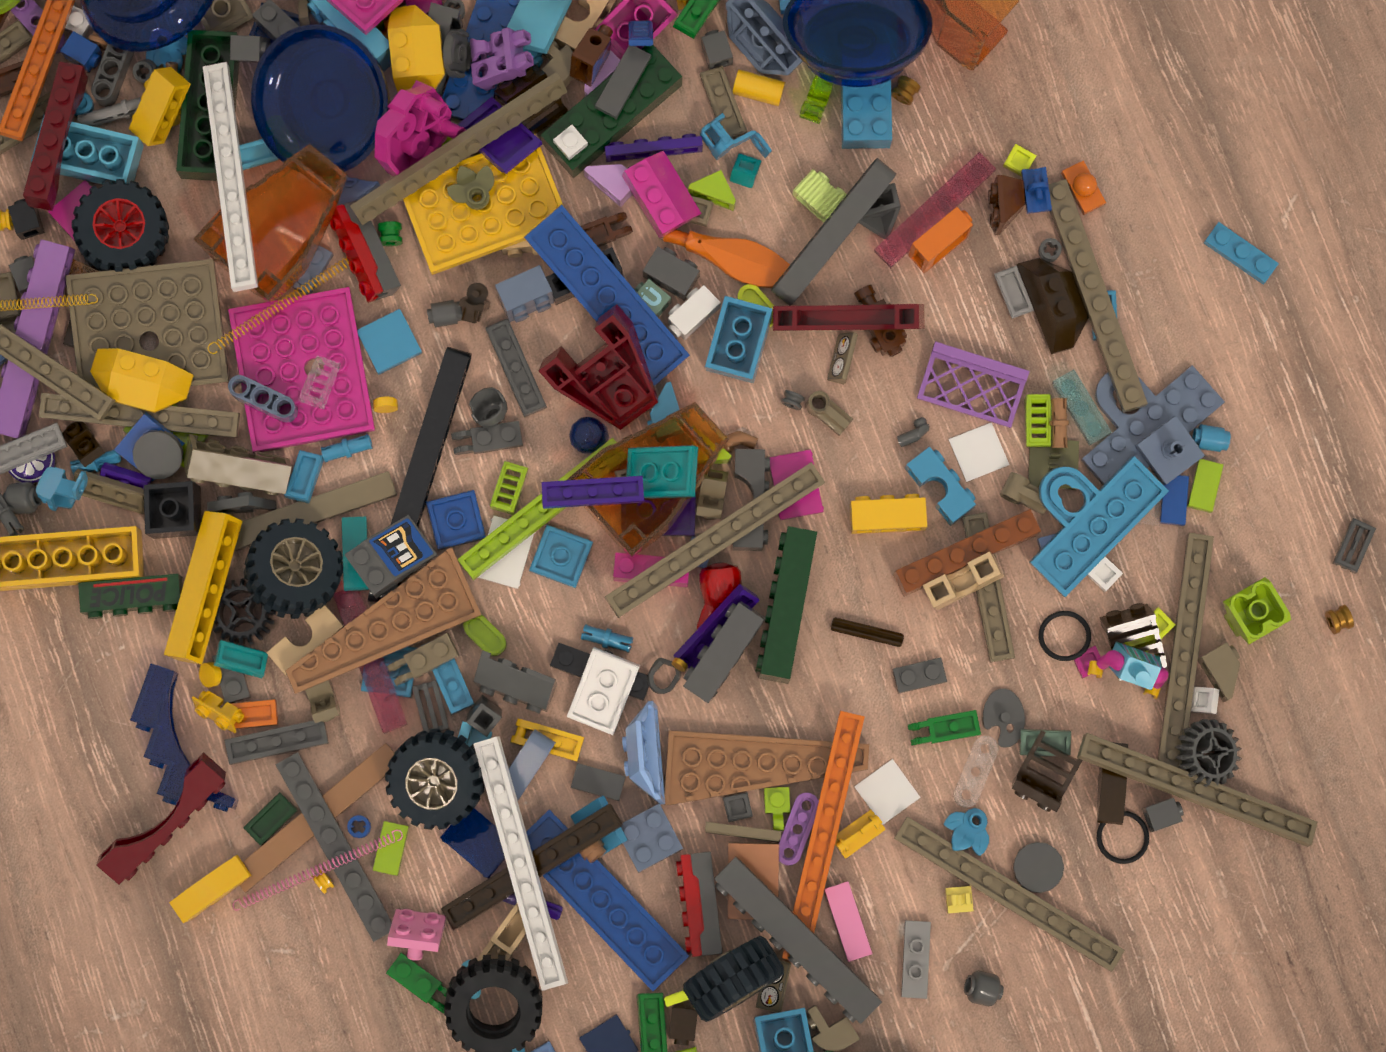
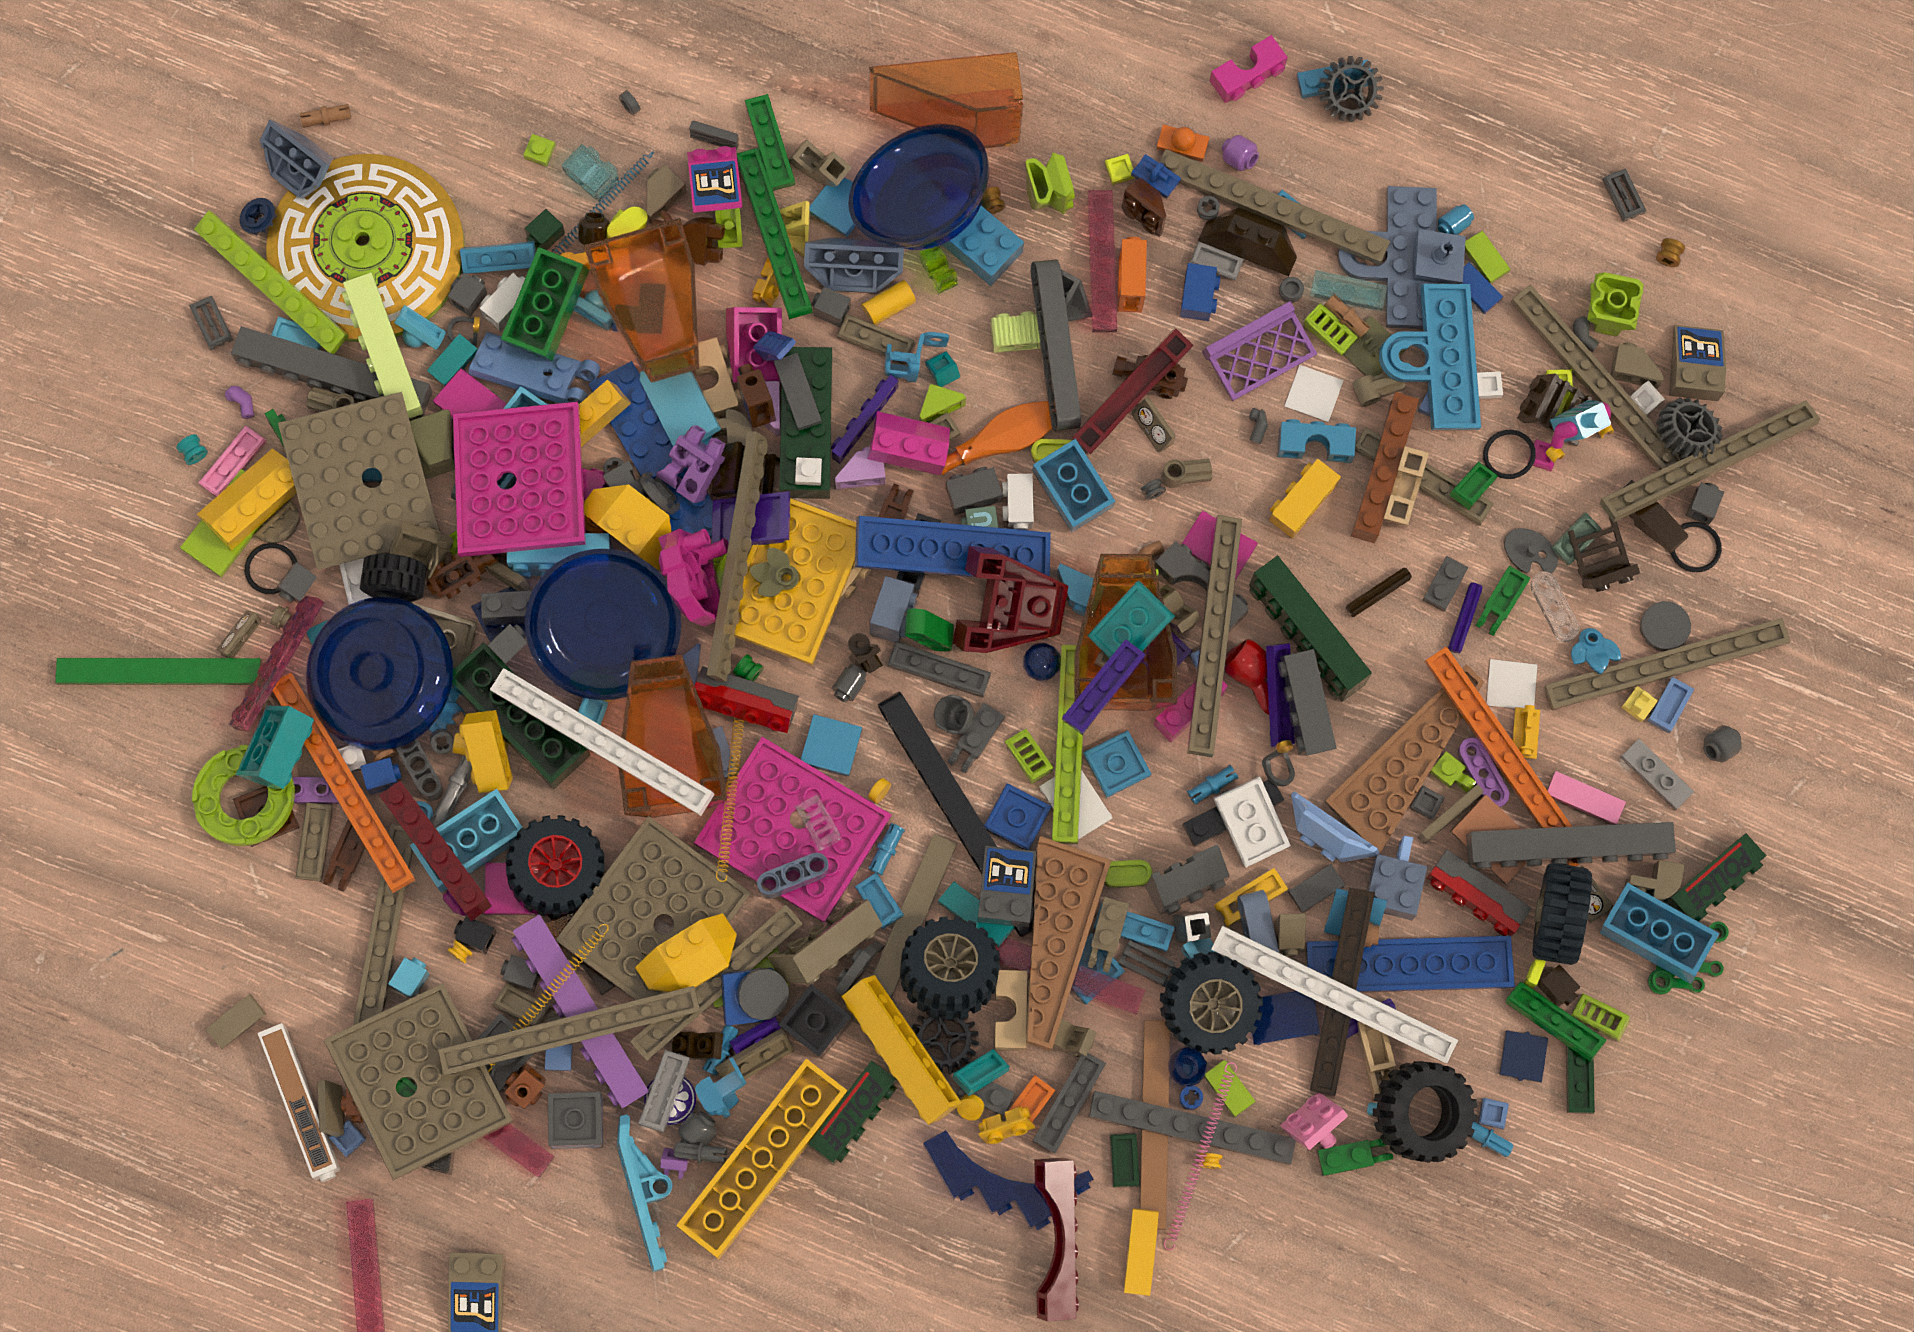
camera: 50 degrees left, 5 degrees down
(376, 804) = (1187, 1066): none -> clear blue hair
(531, 332) = (929, 630): none -> green beam
(541, 792) = (1290, 933): none -> dark tan slope
(683, 821) = (1404, 848): none -> light blue tile
(906, 712) = (1465, 618): none -> dark purple axle
(955, 119) = (1049, 184): none -> lime piece
(976, 299) = (1199, 292): none -> blue brick
(980, 923) = (1670, 705): none -> medium blue tile
(1014, 630) = (1473, 485): none -> green tile
(1043, 365) = (1291, 289): none -> dark grey tile
(1114, 235) = (1240, 153): none -> medium lavender head
(1166, 183) = (1233, 82): none -> dark pink arch
(1211, 608) = (1581, 330): none -> dark grey arm
(1252, 272) = (1344, 80): none -> dark grey gear
(1271, 714) = (1698, 363): none -> slope

